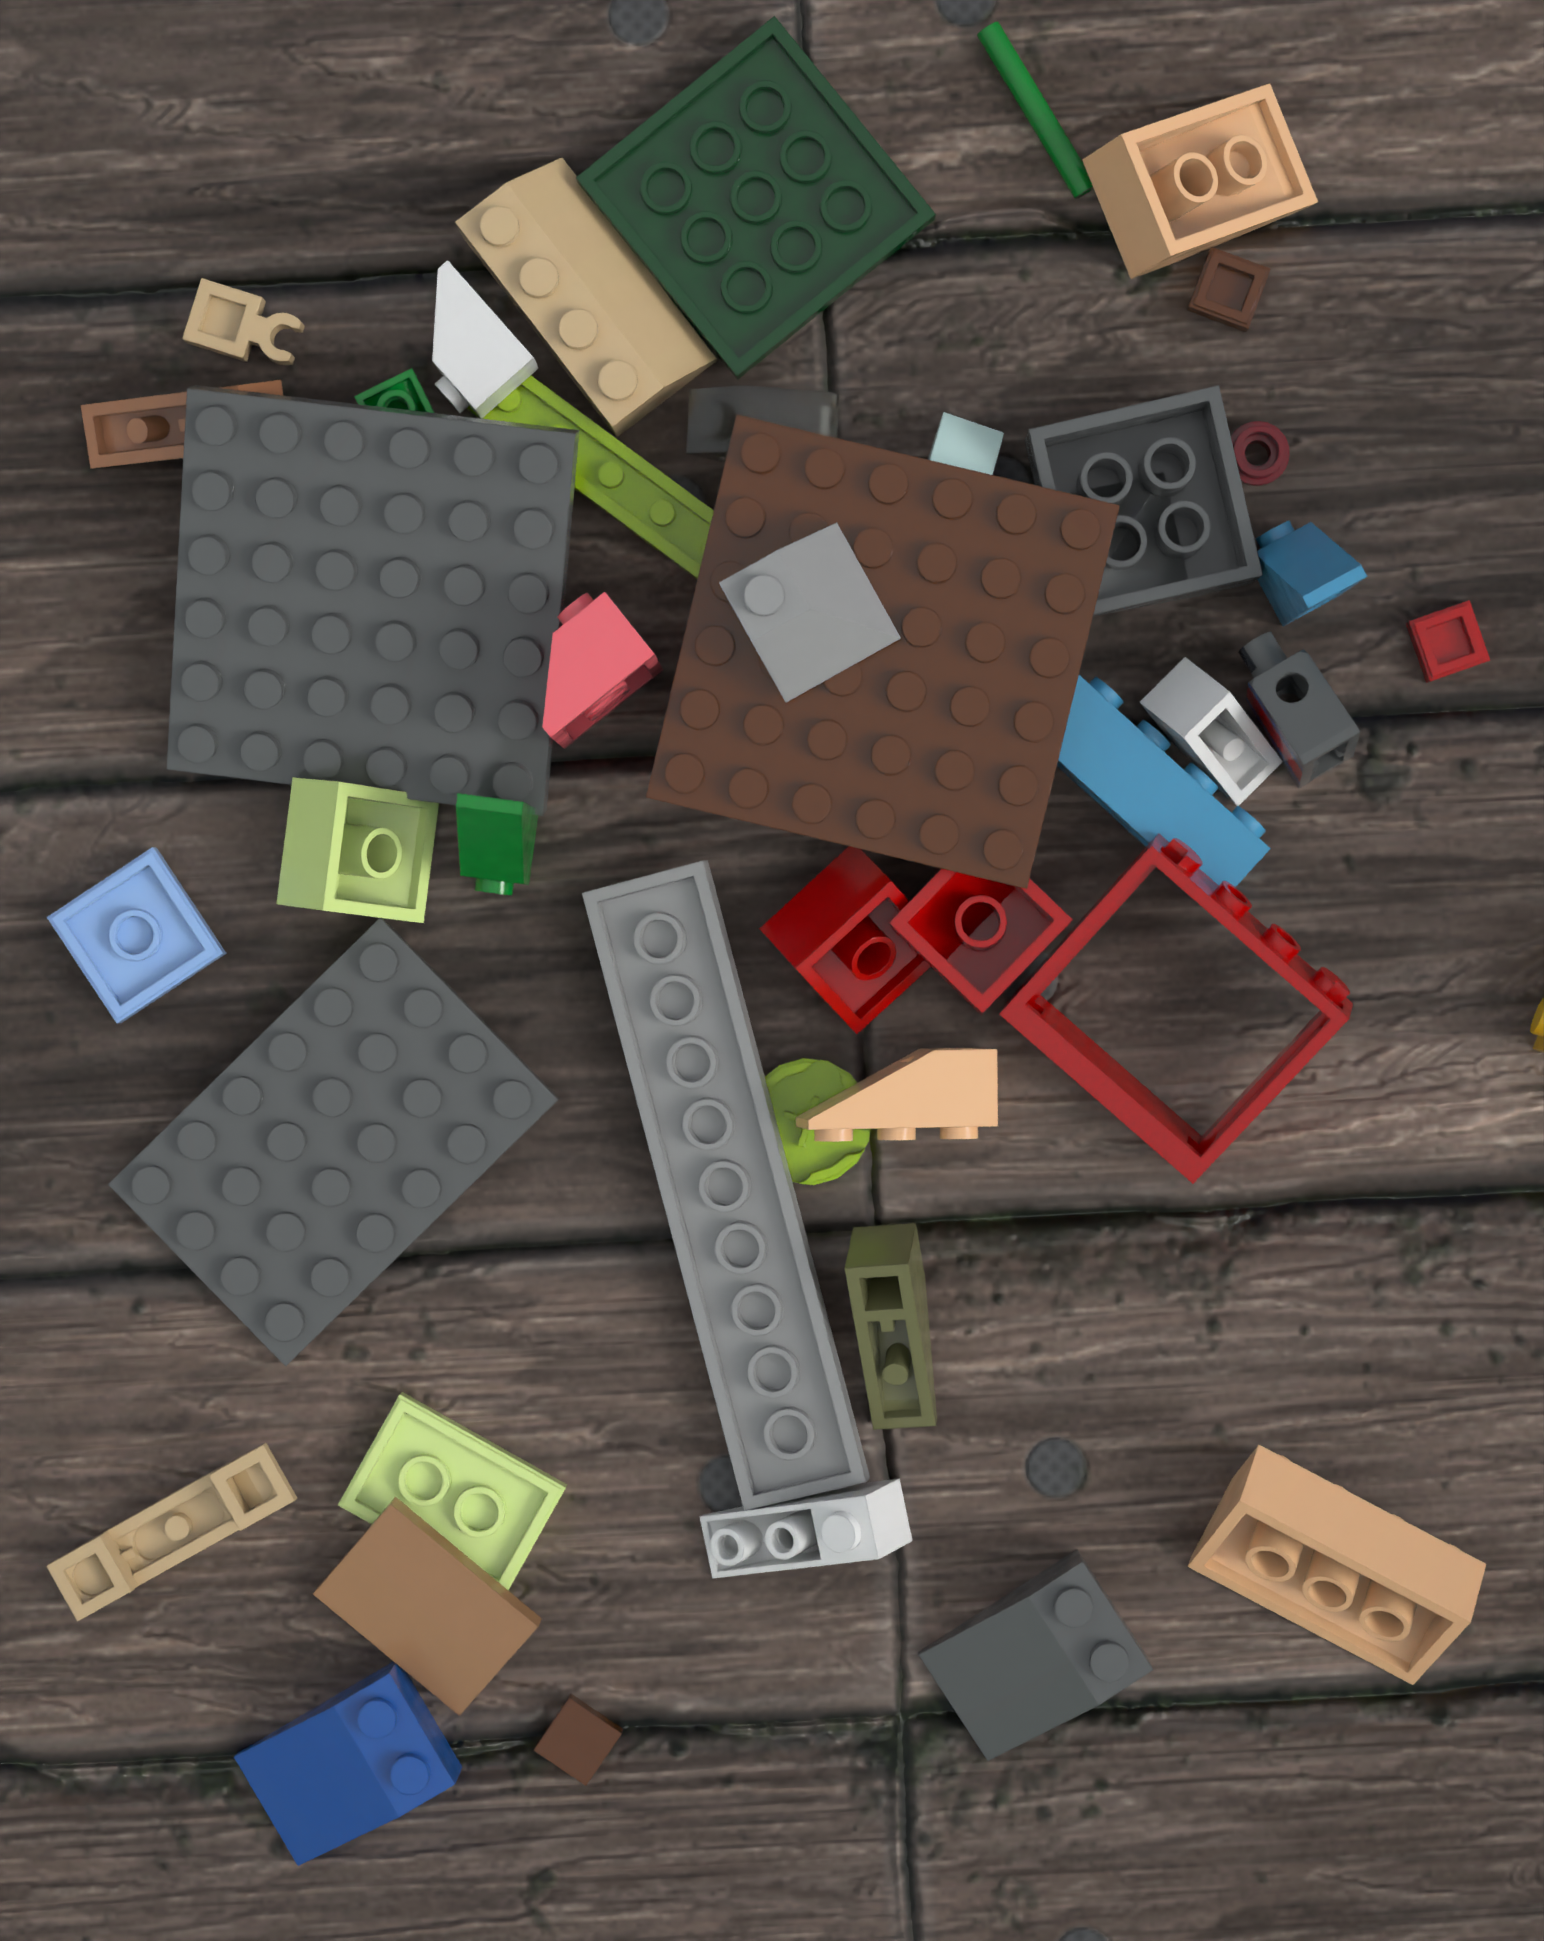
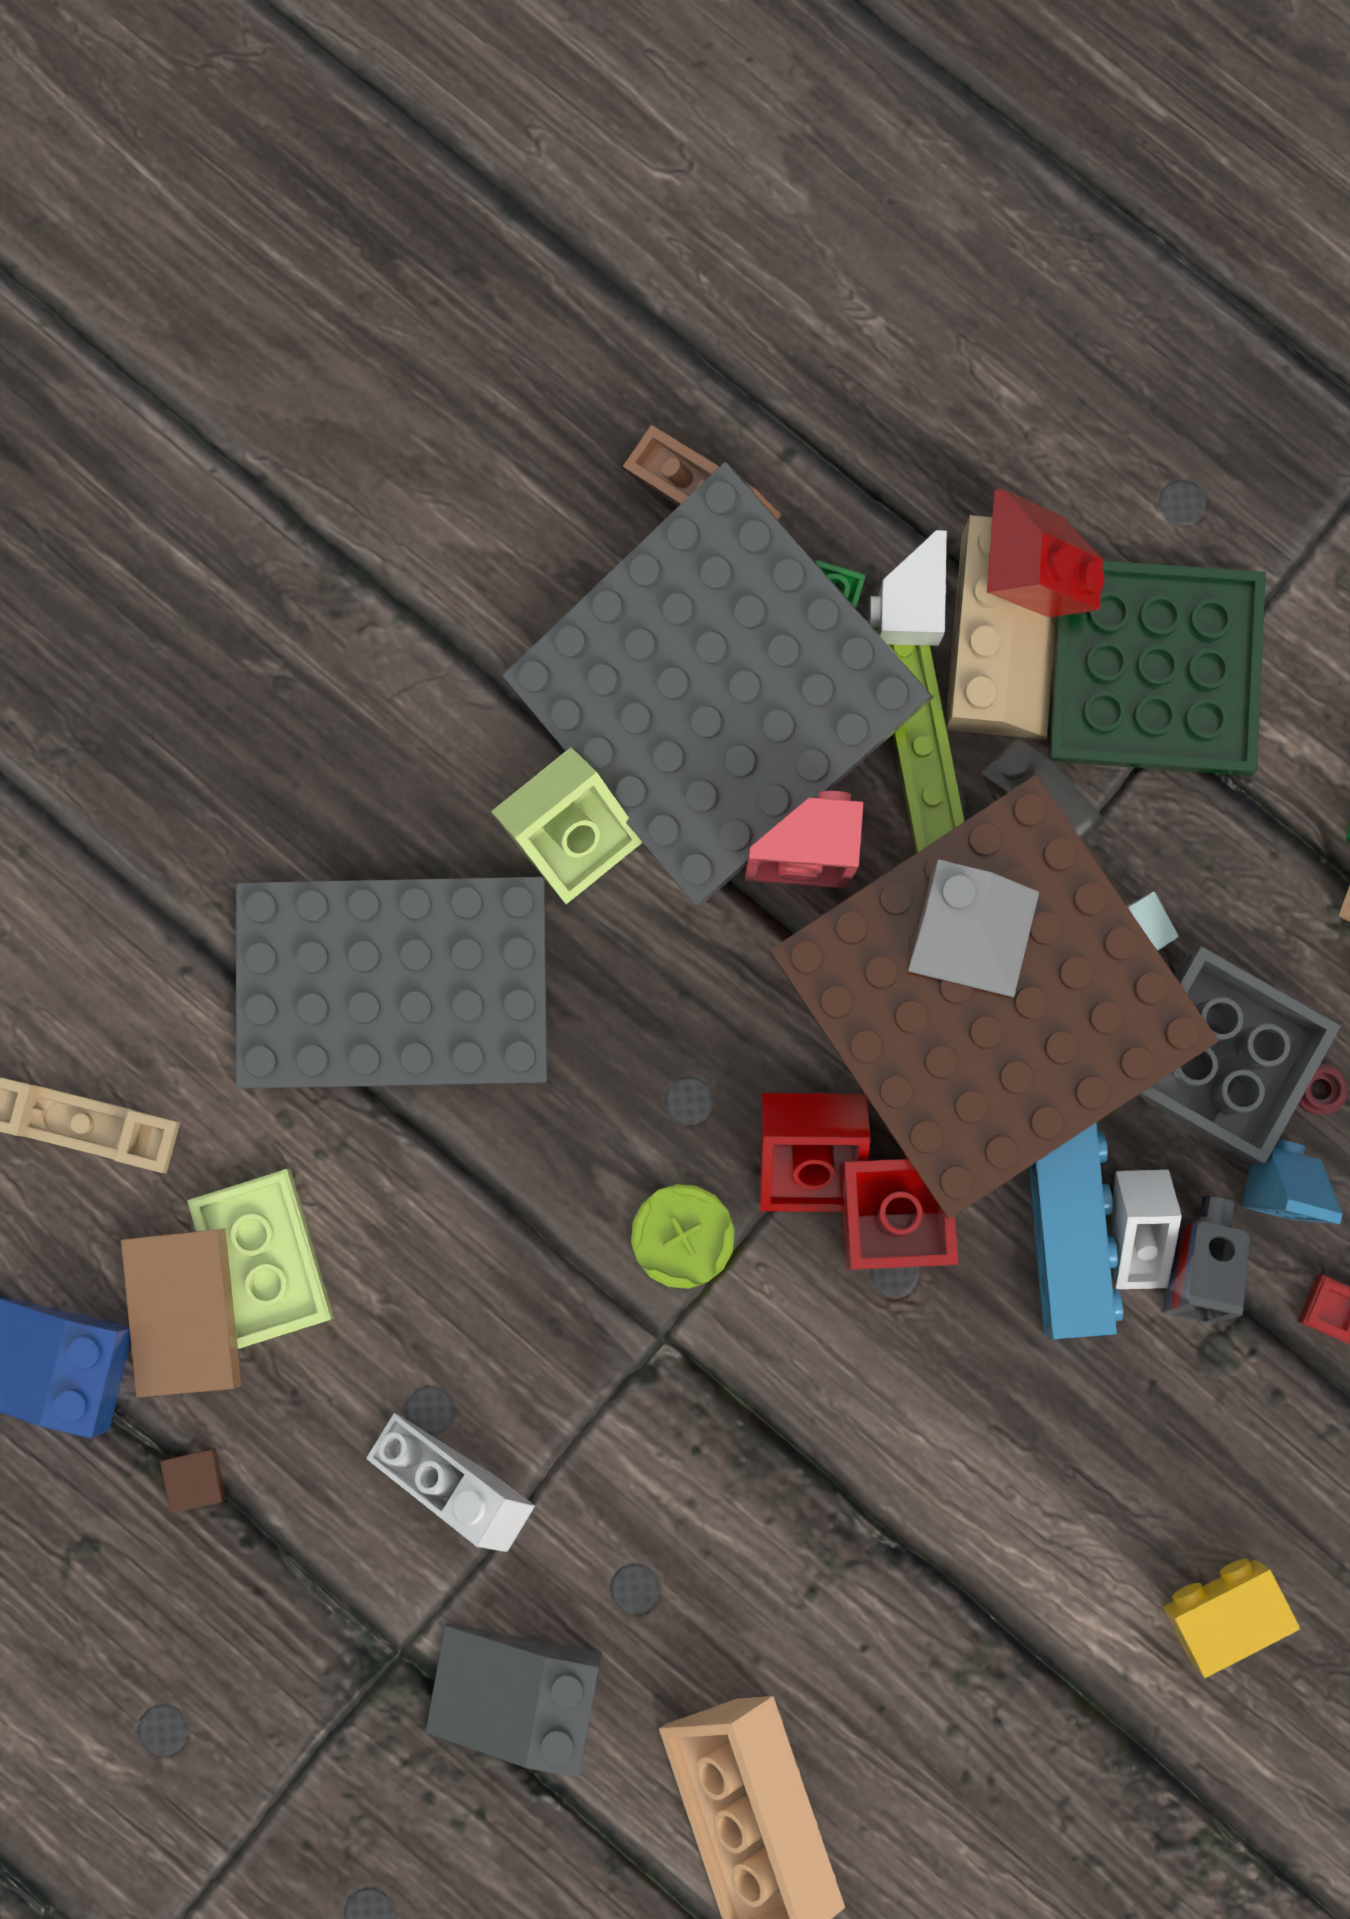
camera: 40 degrees right, 5 degrees down
(136, 935) = (392, 754): light blue plate -> none
(232, 322) = (784, 457): tan plate -> none
(495, 842) = (655, 892): green slope -> none
(557, 203) = (1041, 560): none -> red slope
(726, 1186) = (596, 1231): light grey plate -> none
(892, 1324) = (618, 1407): olive slope -> none
(921, 1090) = (769, 1281): light nougat slope -> none
(1117, 1087) = (888, 1396): red window -> none

